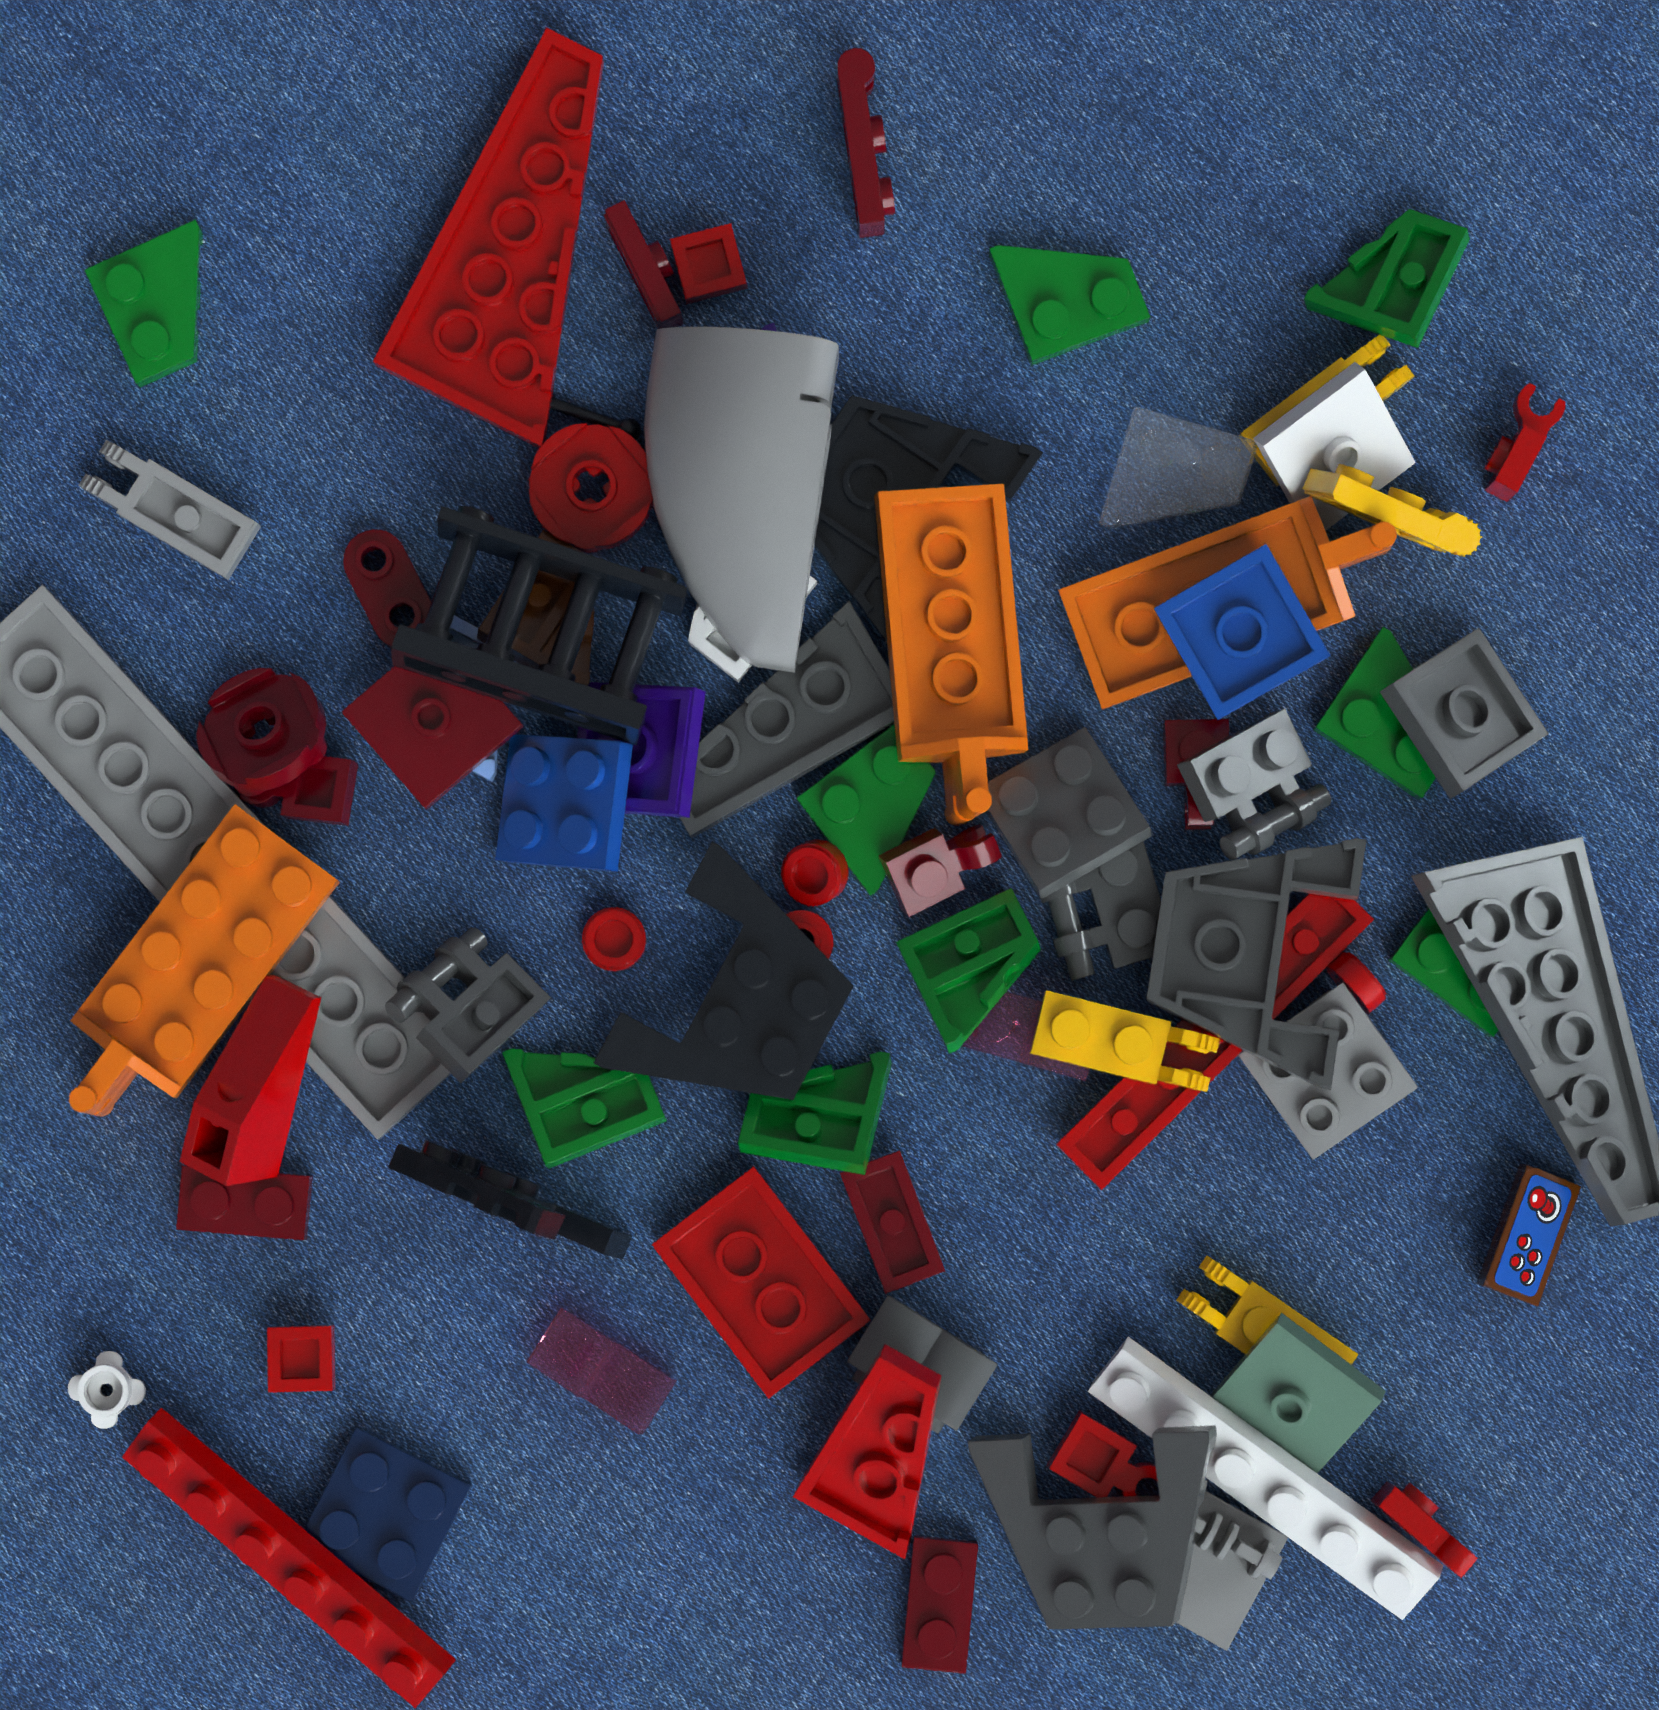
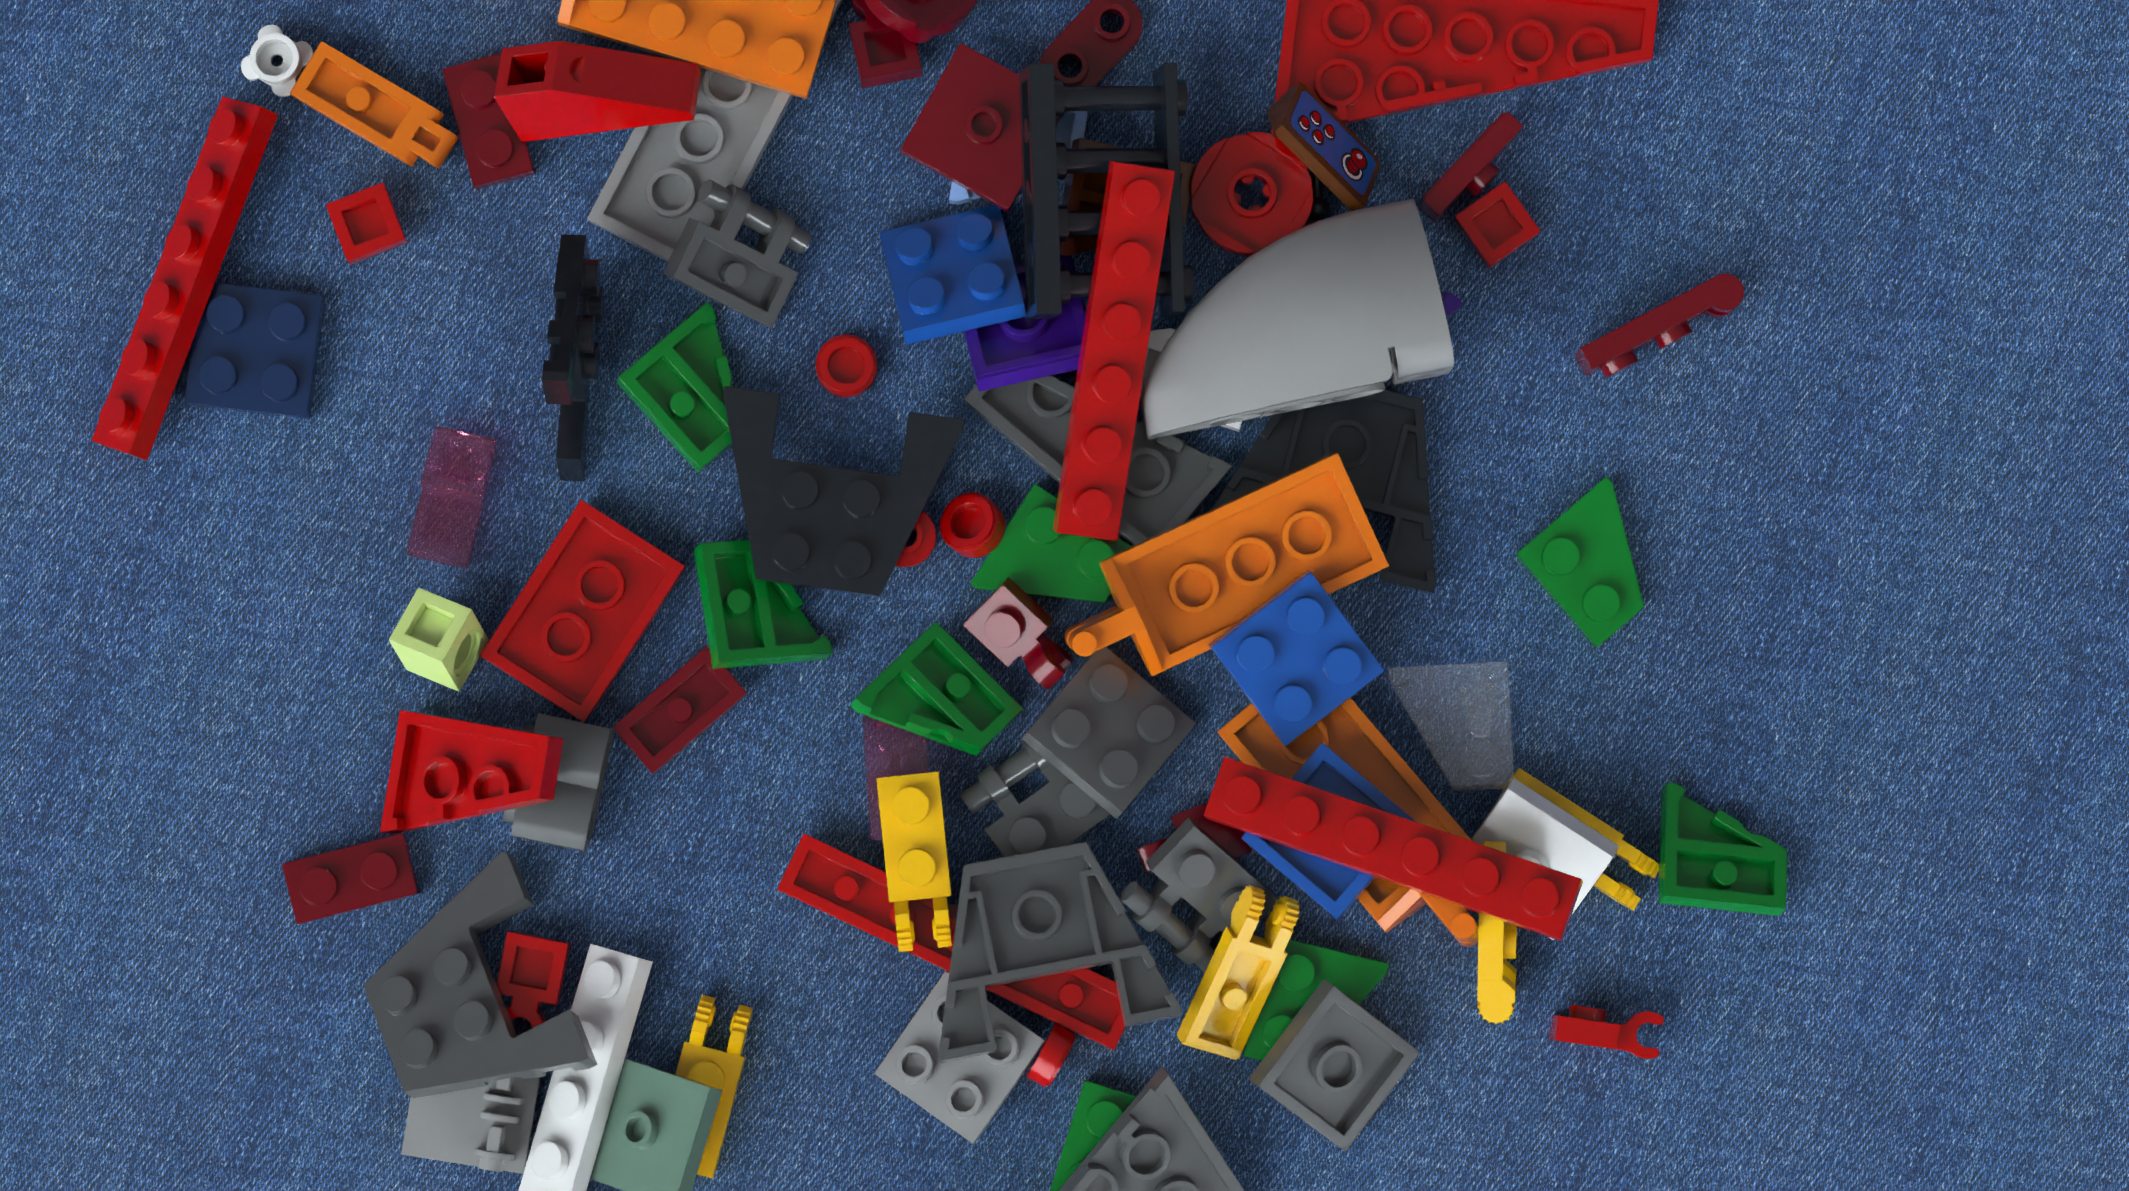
camera: 70 degrees right, 0 degrees up
(189, 1311) = (373, 108): none -> orange hinge
(571, 397) = (1325, 145): none -> slope
(699, 670) = (1113, 350): none -> red plate
(739, 1433) = (438, 639): none -> yellowish green brick
(1061, 604) = (1296, 657): none -> blue plate
(1285, 574) = (1393, 848): none -> red plate
(1345, 771) = (1239, 976): none -> yellow hinge

